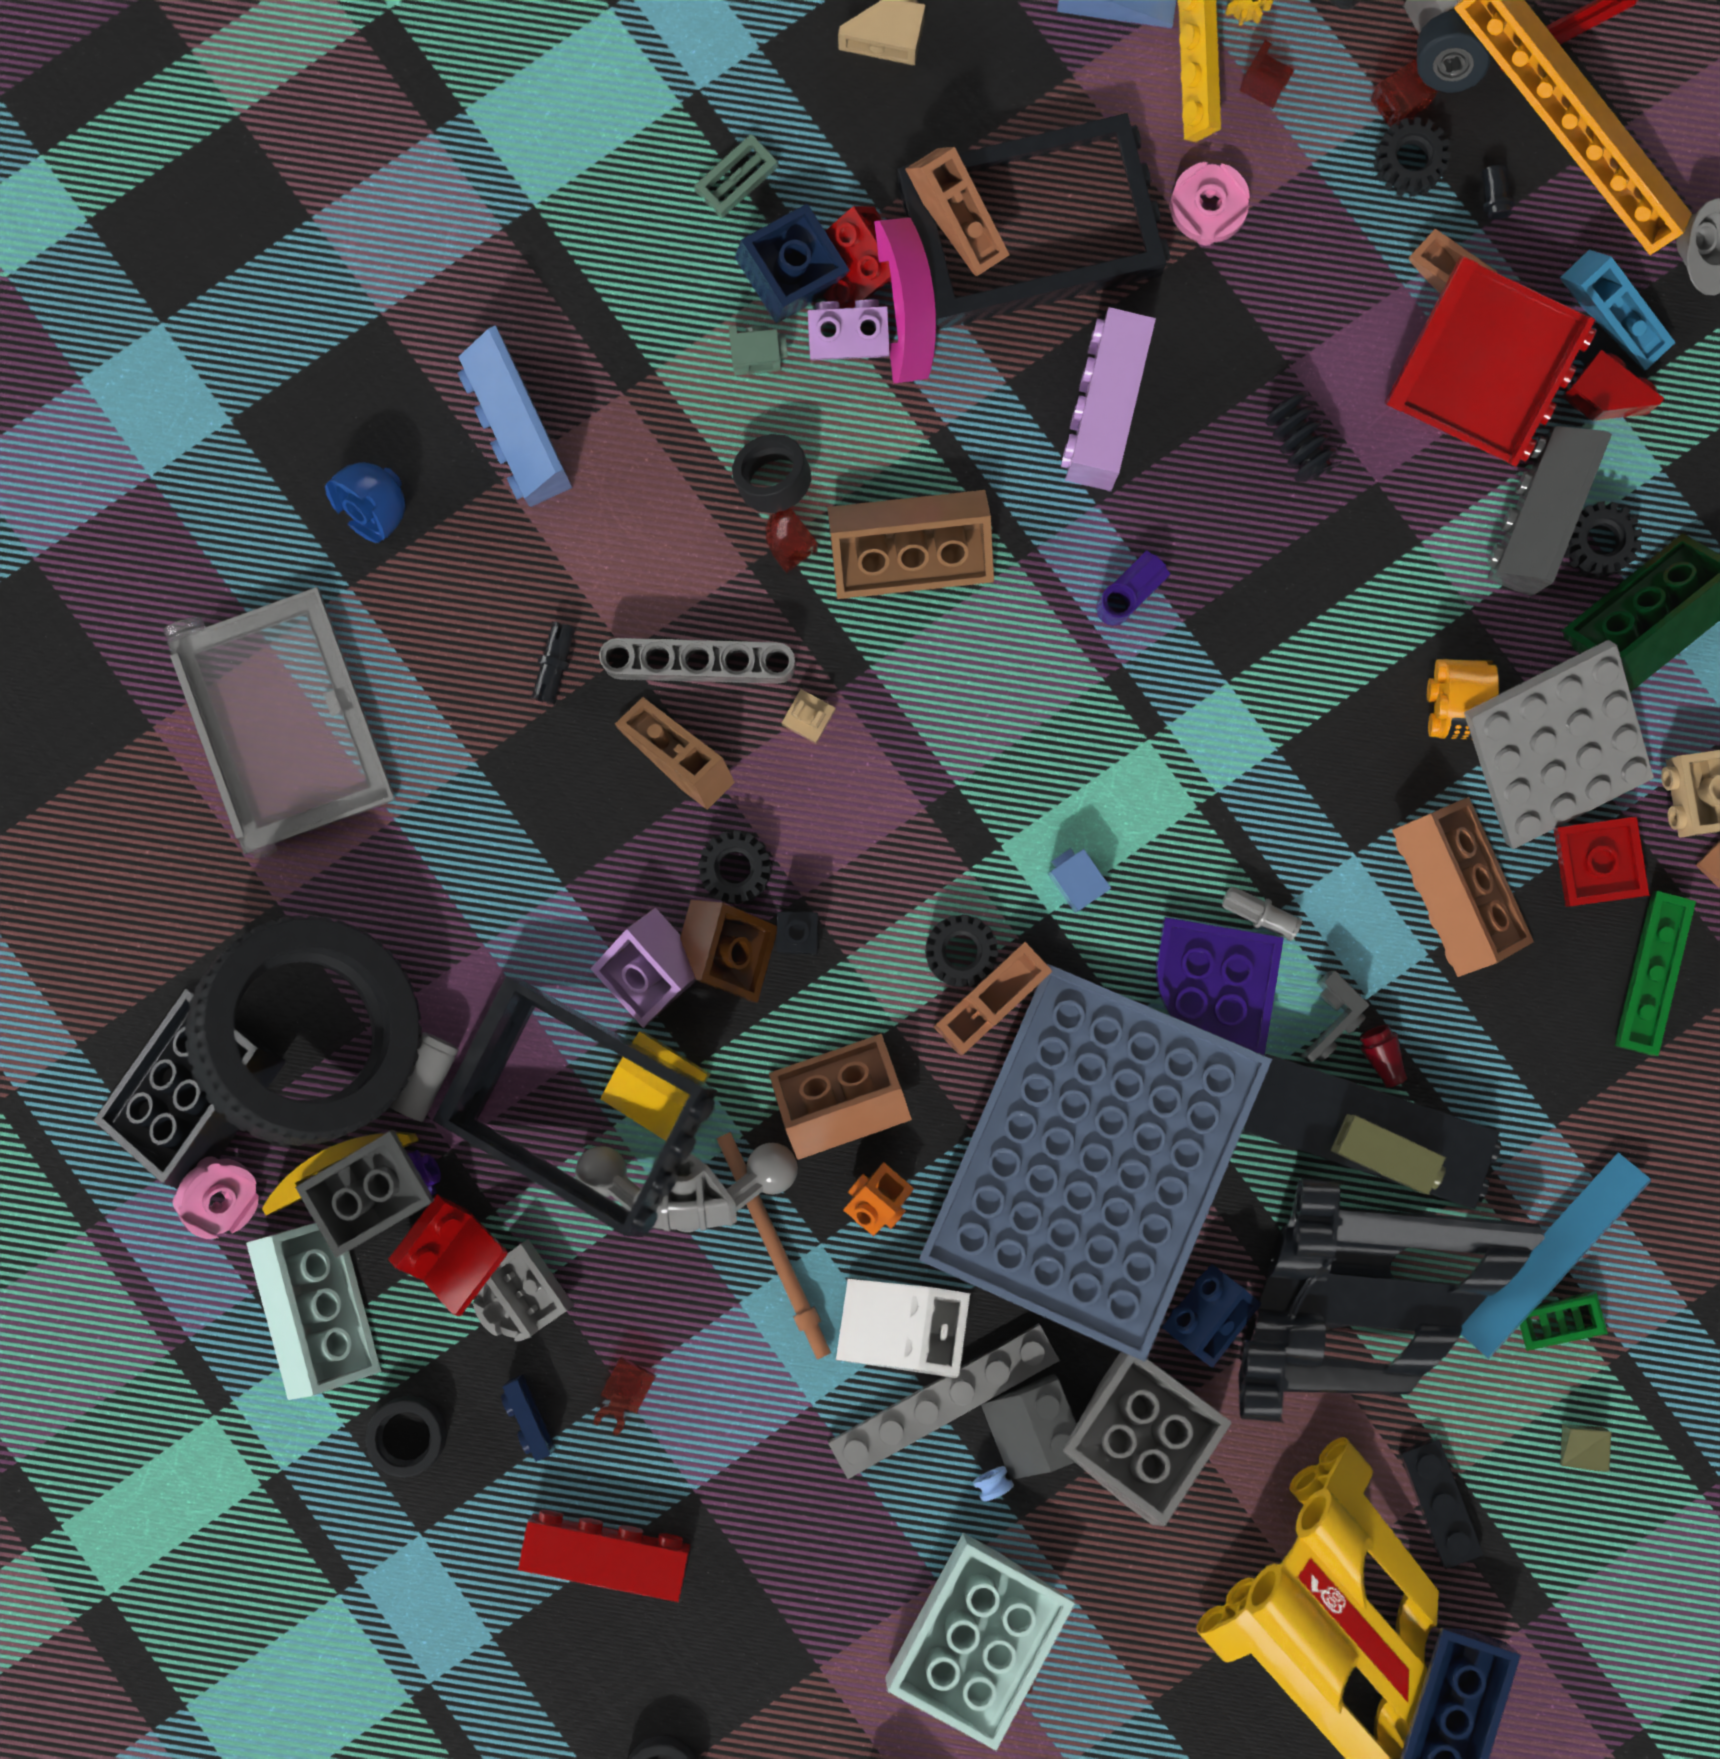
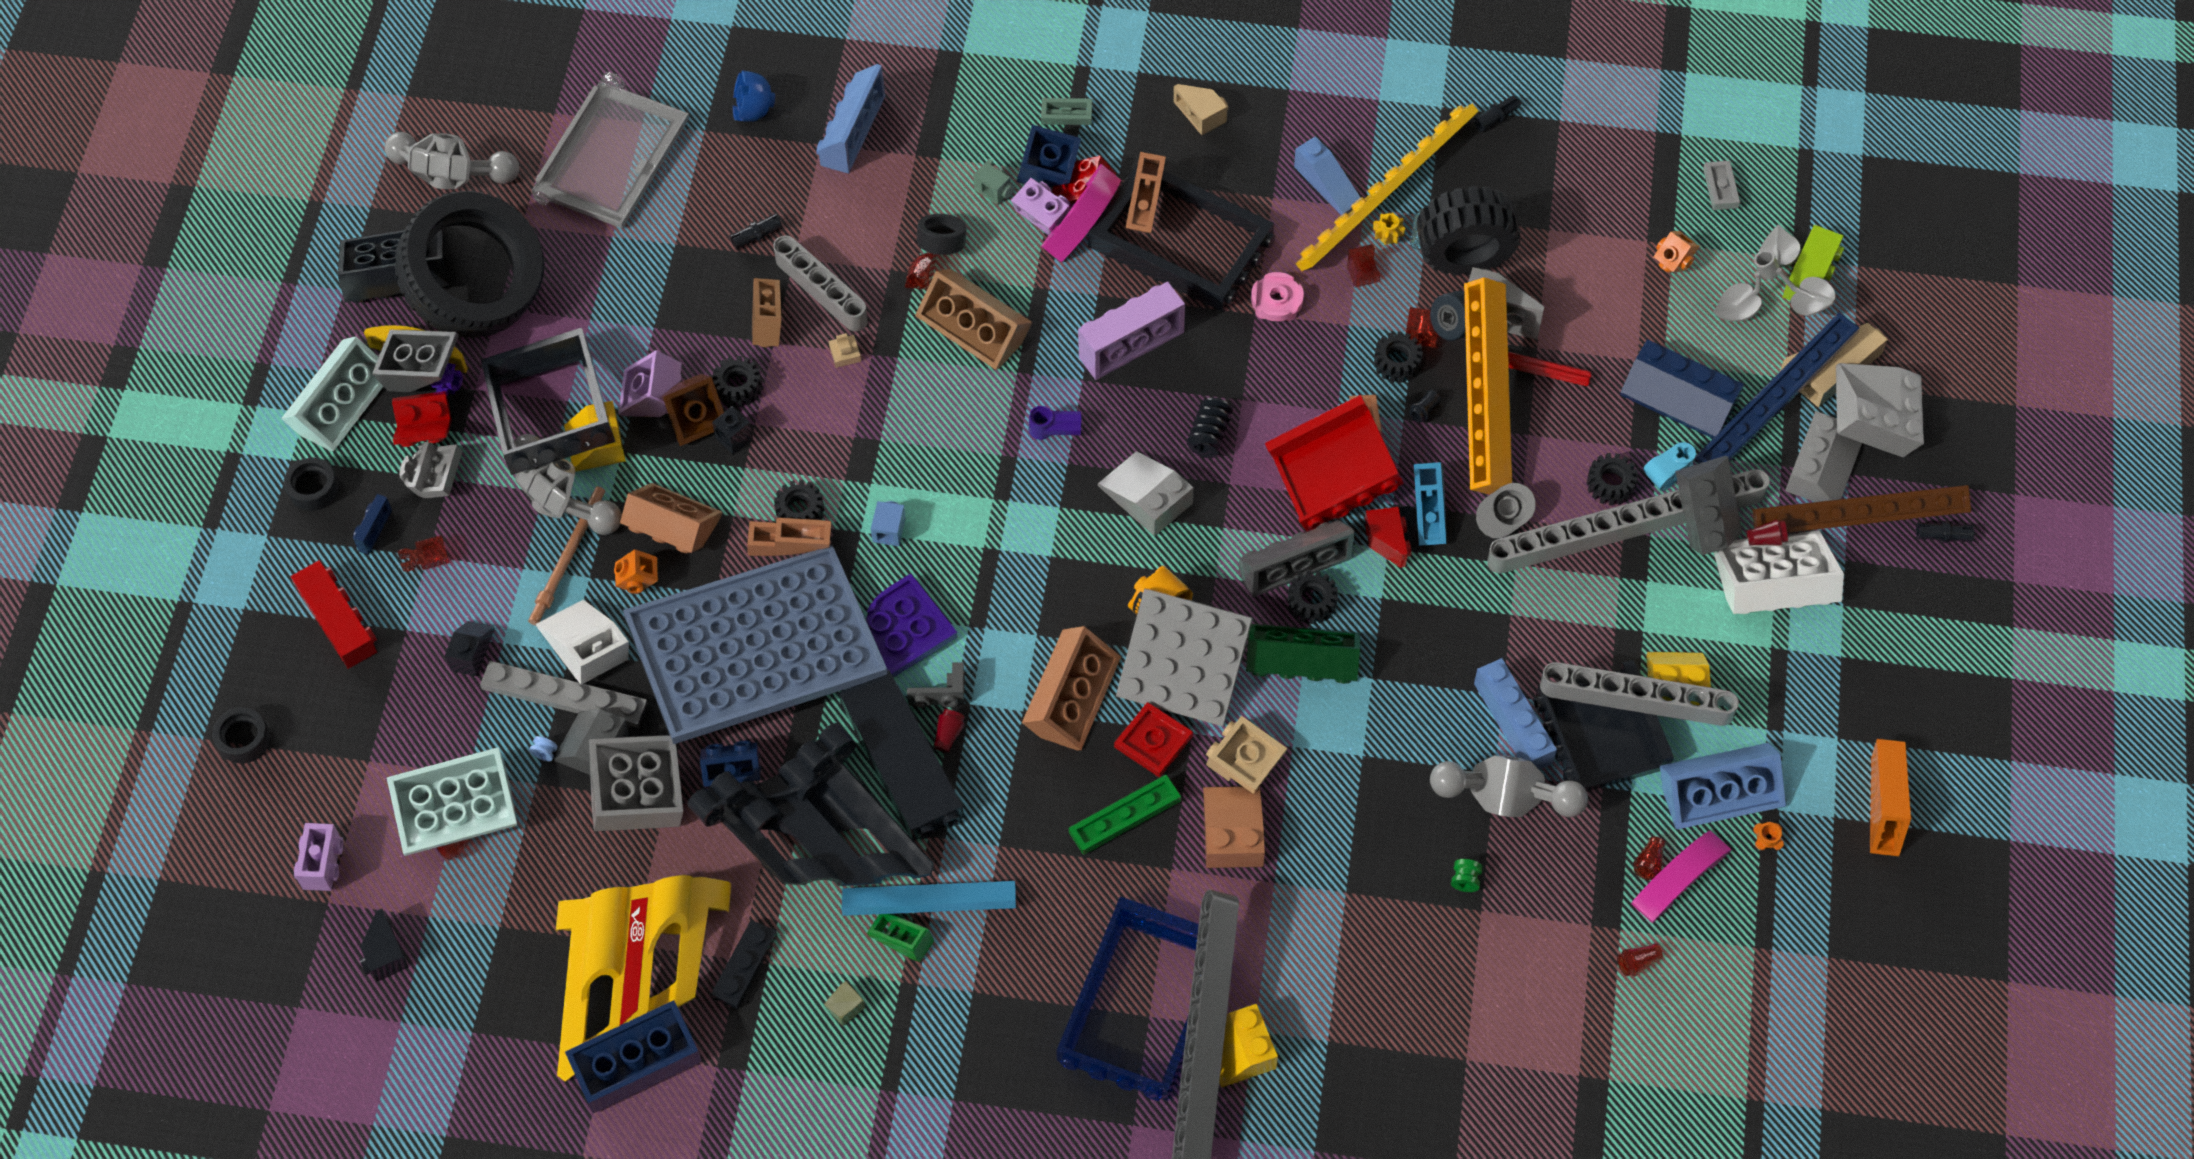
camera: 45 degrees right, 25 degrees down
(110, 918) = (445, 162): none -> light grey piece
(202, 1183) = (344, 322): bright pink plate -> none
(427, 1078) = (497, 342): light grey pin -> none
(788, 1448) = (468, 647): none -> black slope
(1262, 913) = (960, 615): light grey axle -> none
(1307, 577) = (1148, 491): none -> light grey slope
(1389, 1154) = (893, 757): olive brick -> none

